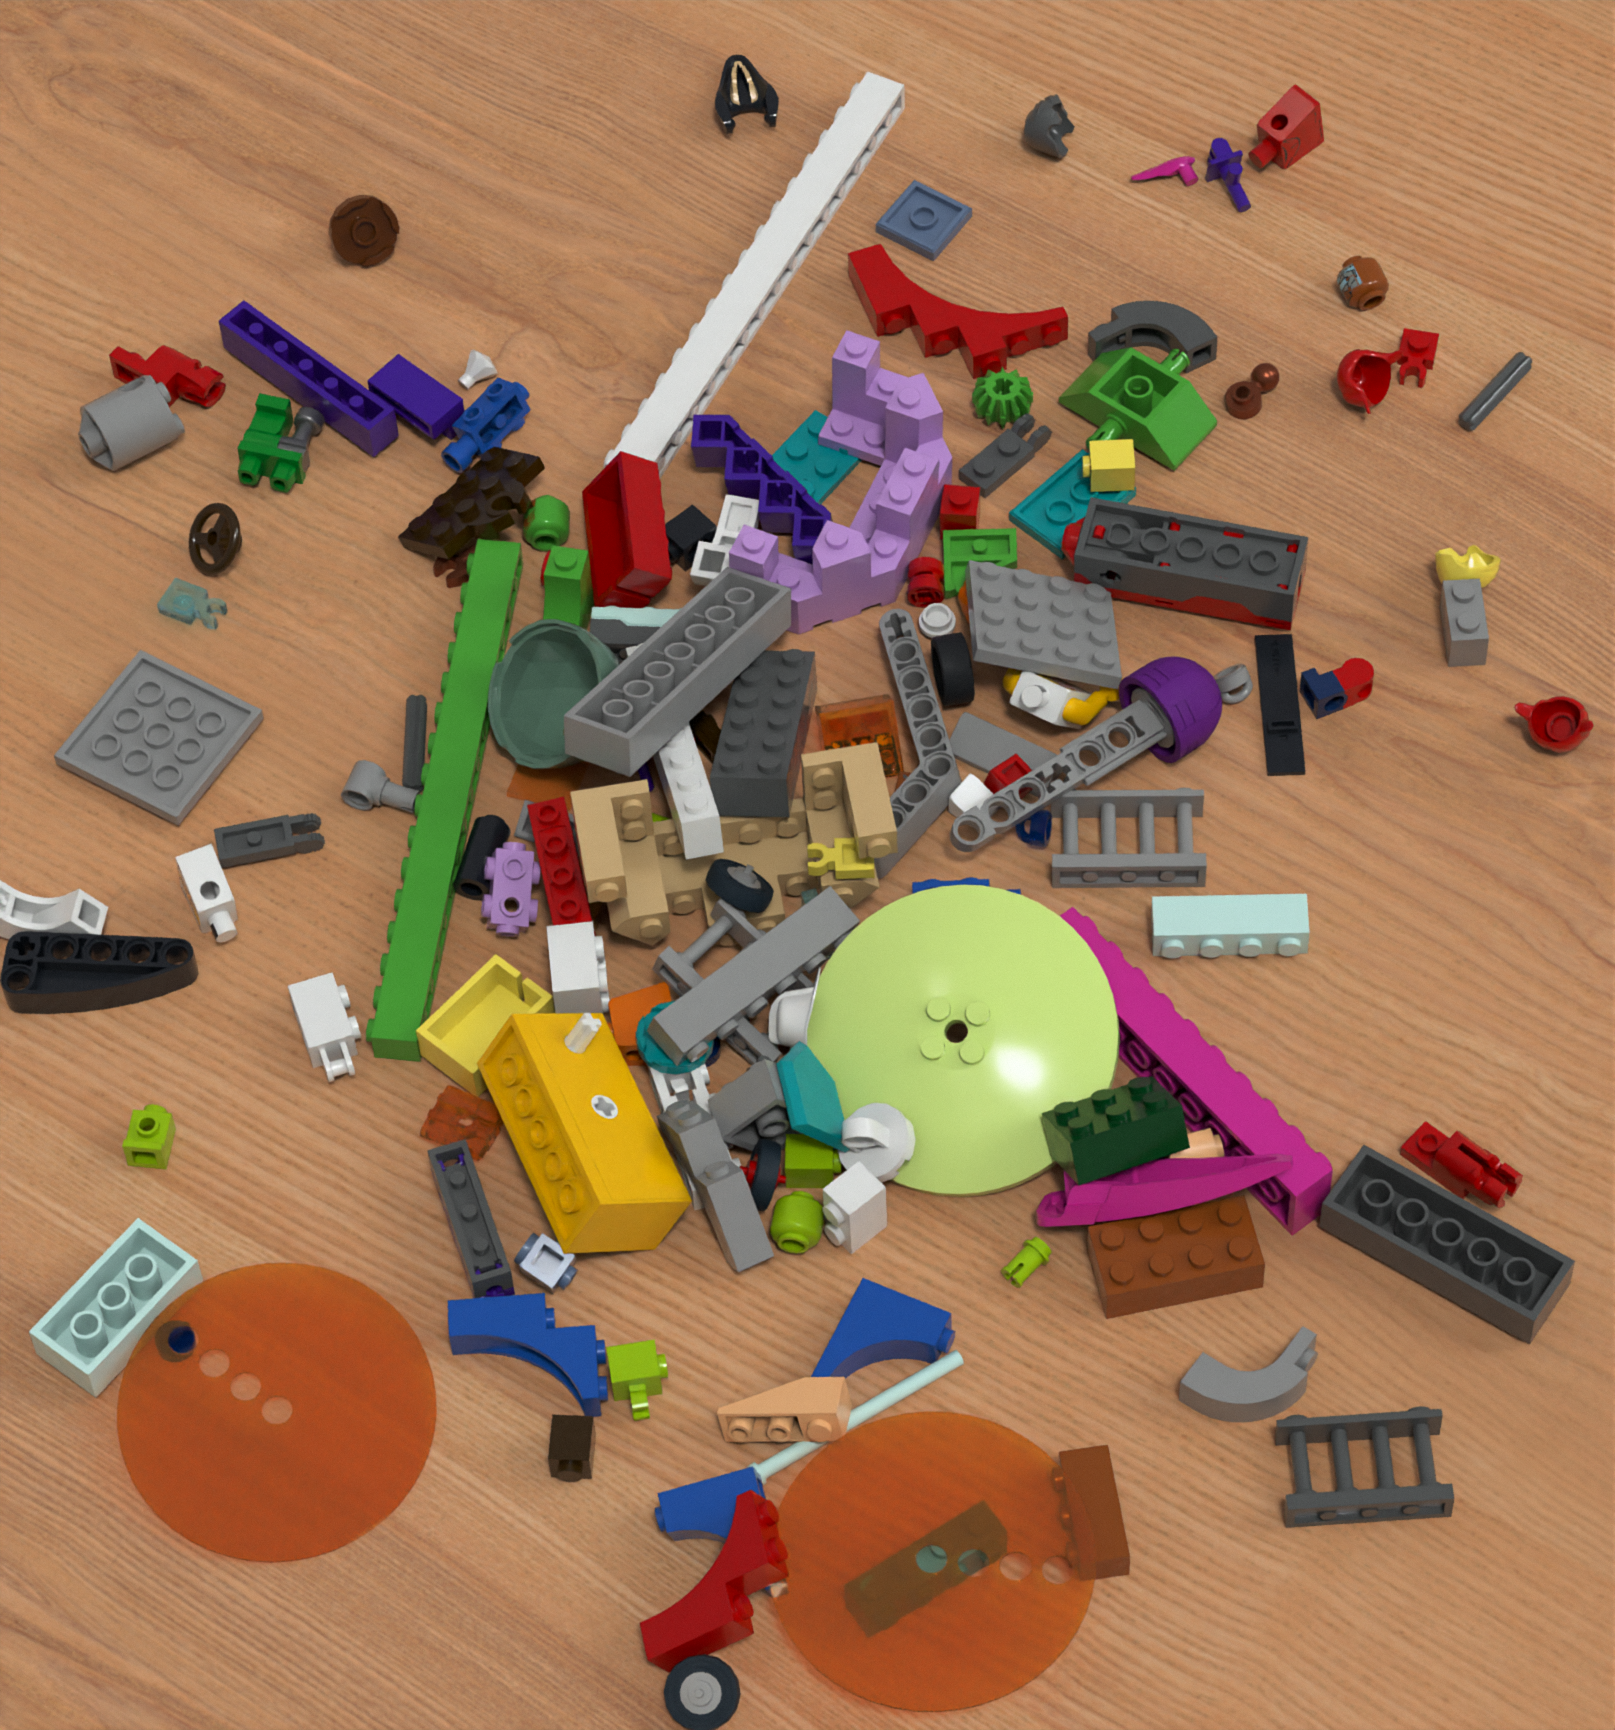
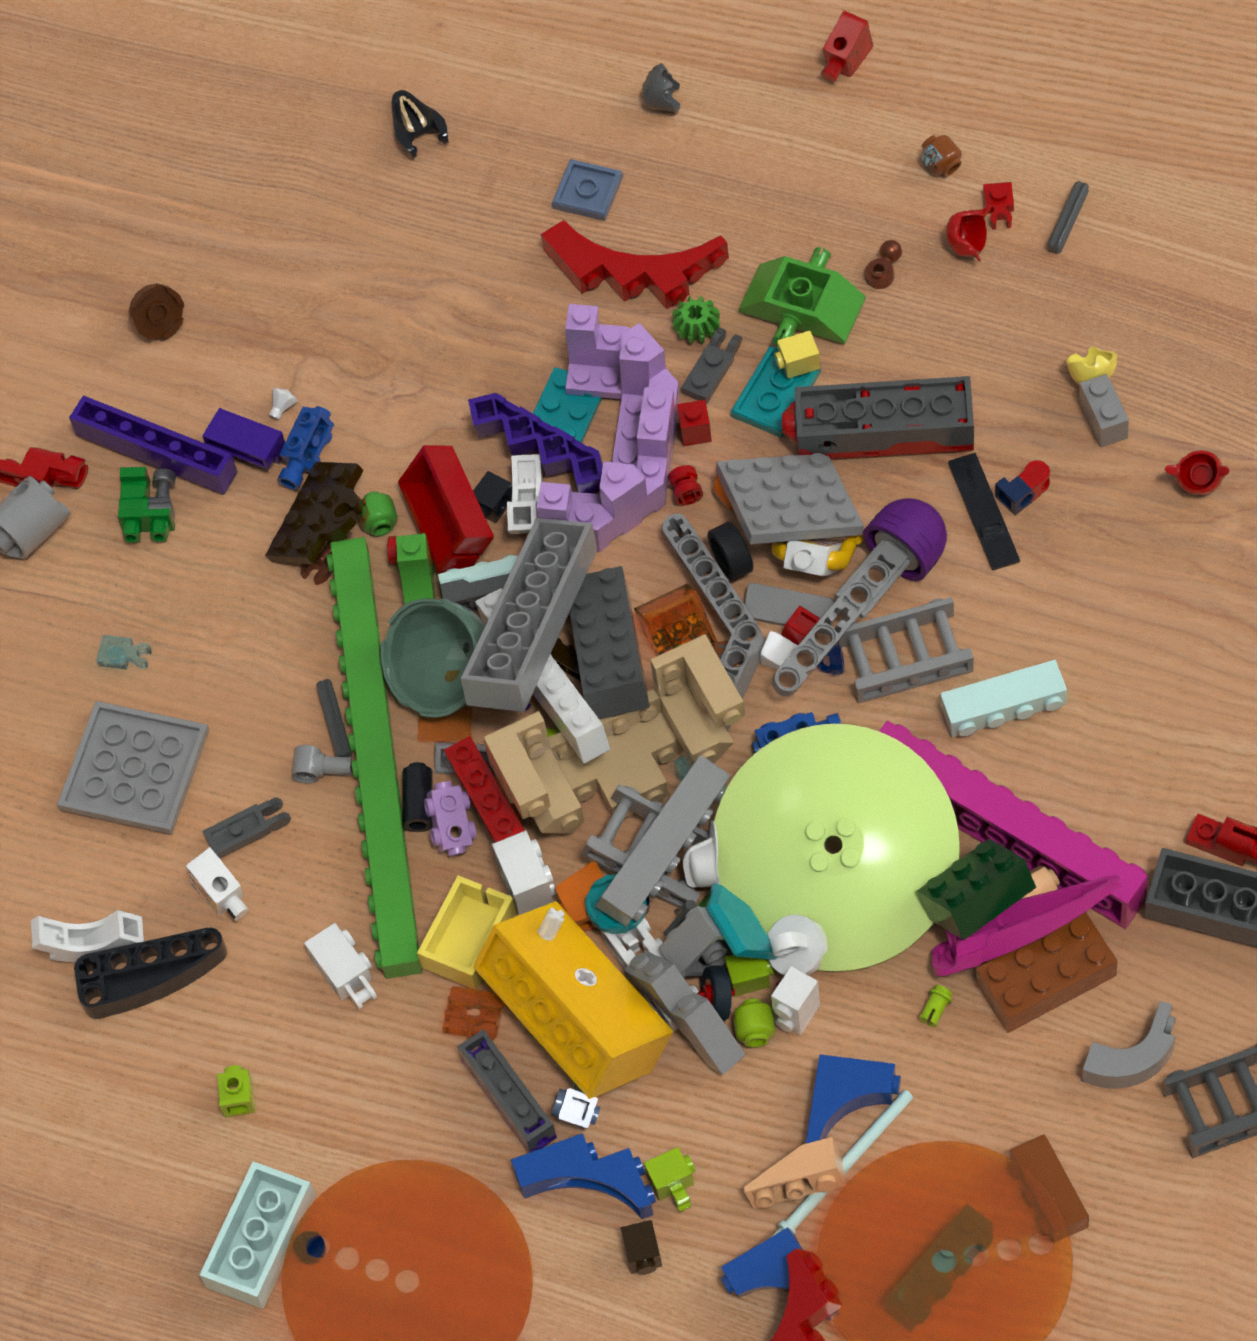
camera: 10 degrees left, 5 degrees up
(223, 539) = (131, 594): dark brown piece -> none
(739, 885) = (628, 770): black wheel -> none
(763, 272) = (477, 268): white brick -> none
(842, 859) = (702, 730): light yellow plate -> none
(937, 620) = (703, 514): white plate -> none
(978, 545) = (715, 447): bright green wing -> none
(1157, 326) = (796, 230): dark grey arch -> none
(1172, 167) = (771, 94): dark pink bar -> none
(1227, 165) = (806, 85): dark purple arm -> none
(1232, 678) = (943, 501): light grey tile -> none

